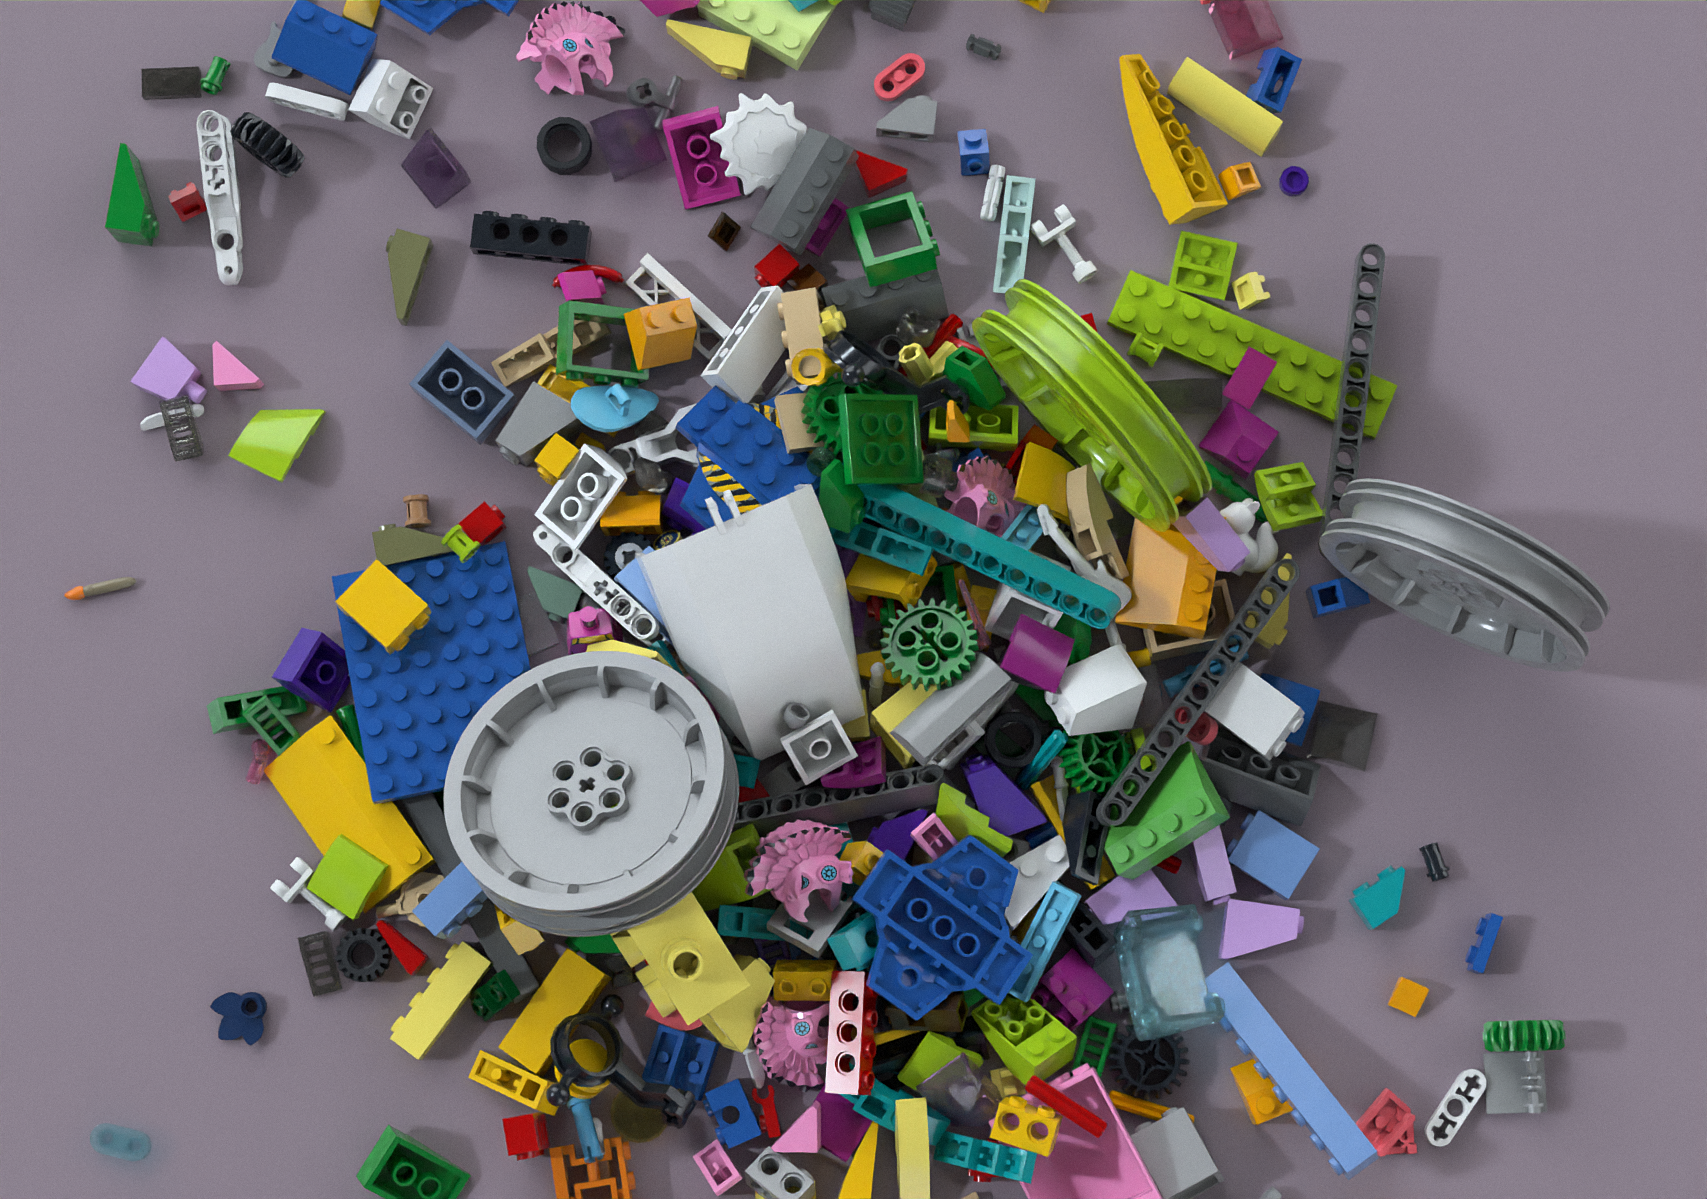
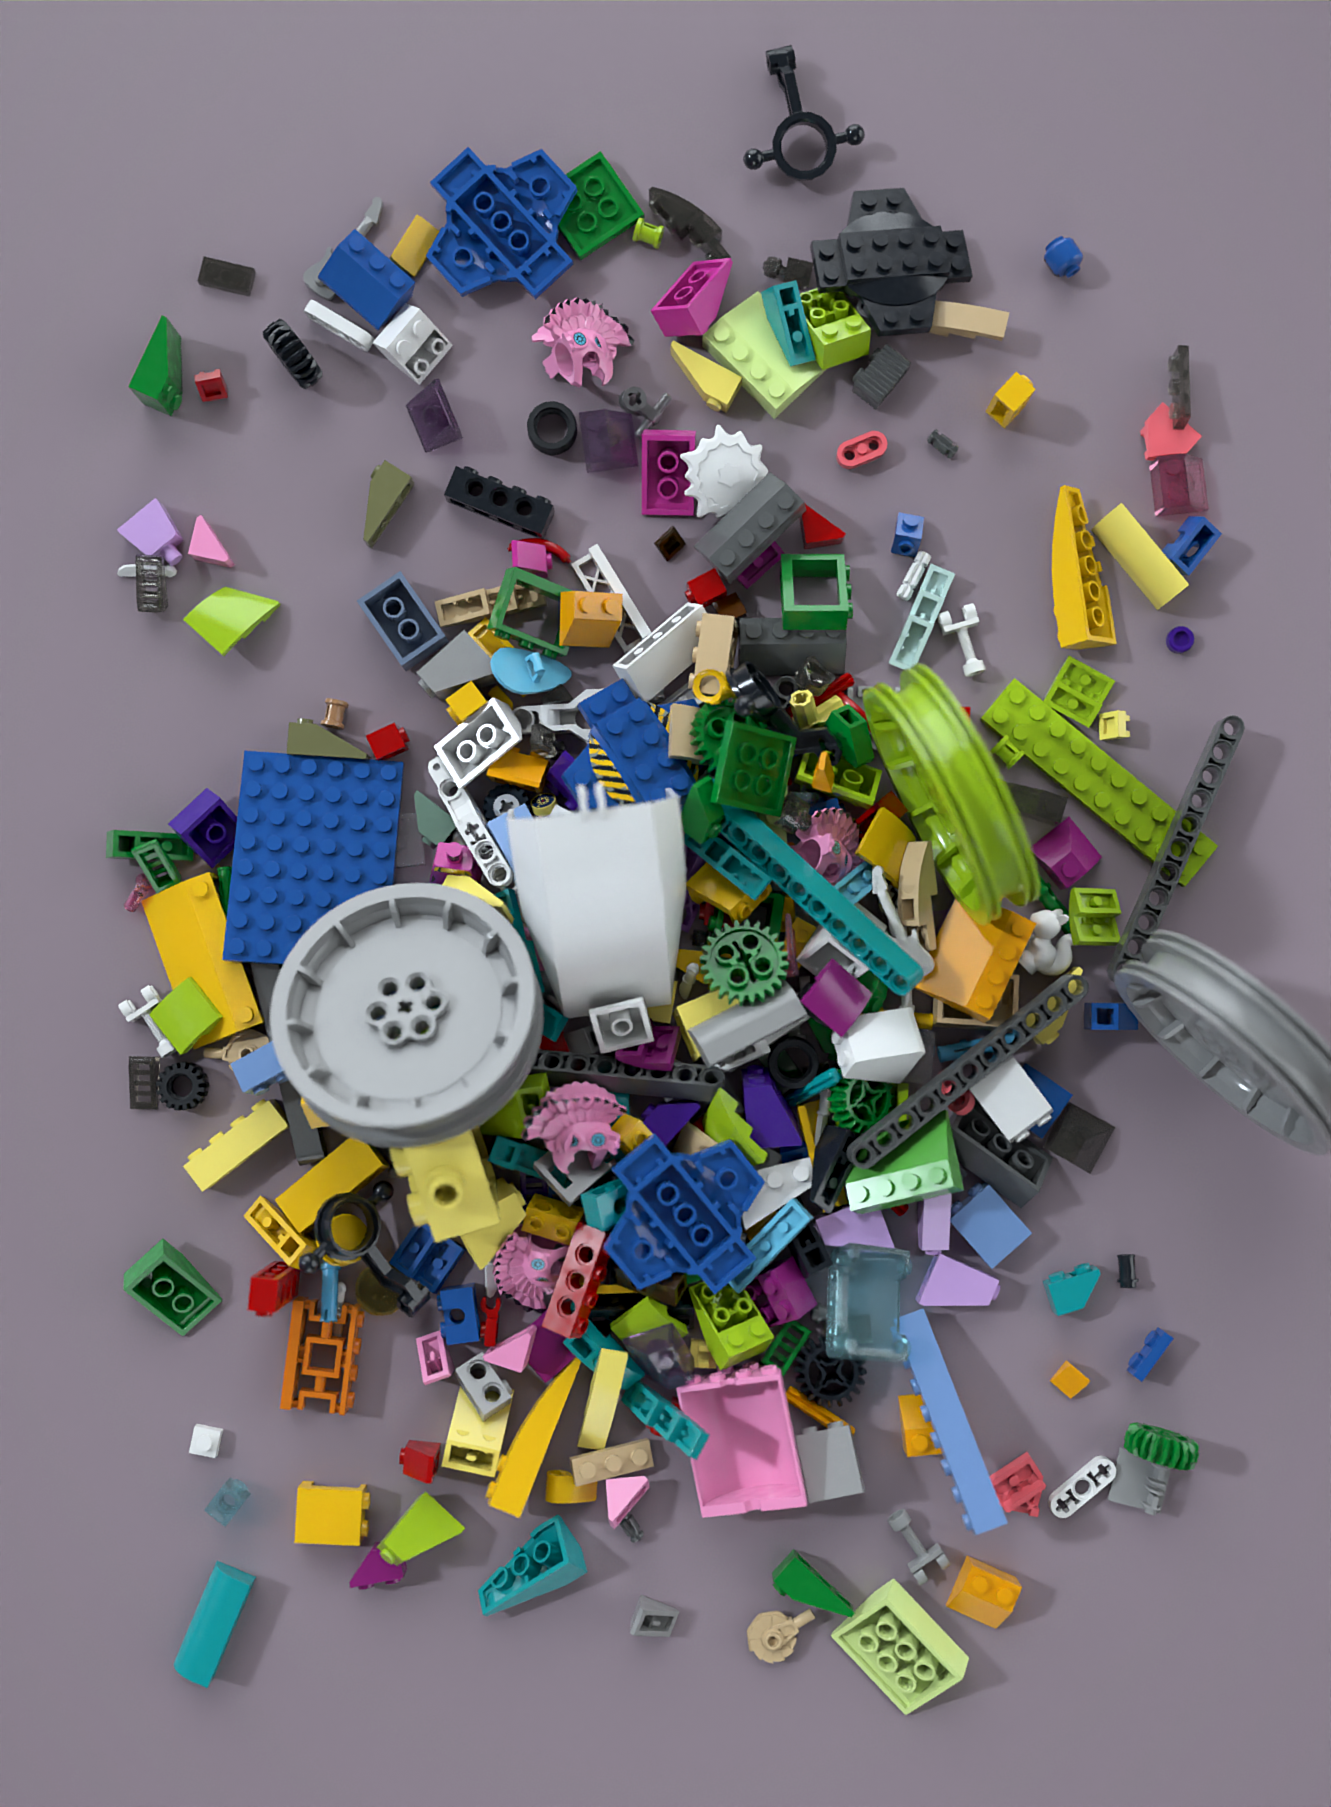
camera: 15 degrees right, 5 degrees up
(99, 588) = (49, 703): dark tan piece -> none
(212, 82) = (266, 280): green pin -> none
(222, 203) = (238, 393): white piece -> none
(237, 1019) = (61, 1108): dark blue plate -> none
(384, 607) = (279, 792): yellow panel -> none
(407, 953) = (219, 1093): red slope -> none
(460, 543) = (356, 748): lime bush -> none
(494, 995) = (283, 1154): dark green slope -> none
(795, 715) = (606, 990): light grey hinge -> none
(815, 465) = (694, 772): clear green bush -> none
(831, 322) = (740, 651): light yellow plate -> none
(910, 120) = (860, 491): light grey slope -> none
(933, 837) = (699, 1132): bright pink slope -> none
(1025, 1134) = (703, 1411): yellow brick -> none
(1066, 1106) = (747, 1400): red axle -> none
(1211, 534) = (1021, 938): lavender slope -> none
(1239, 180) = (1132, 625): light orange slope -> none
(1249, 377) = (1091, 802): dark pink sticker -> none

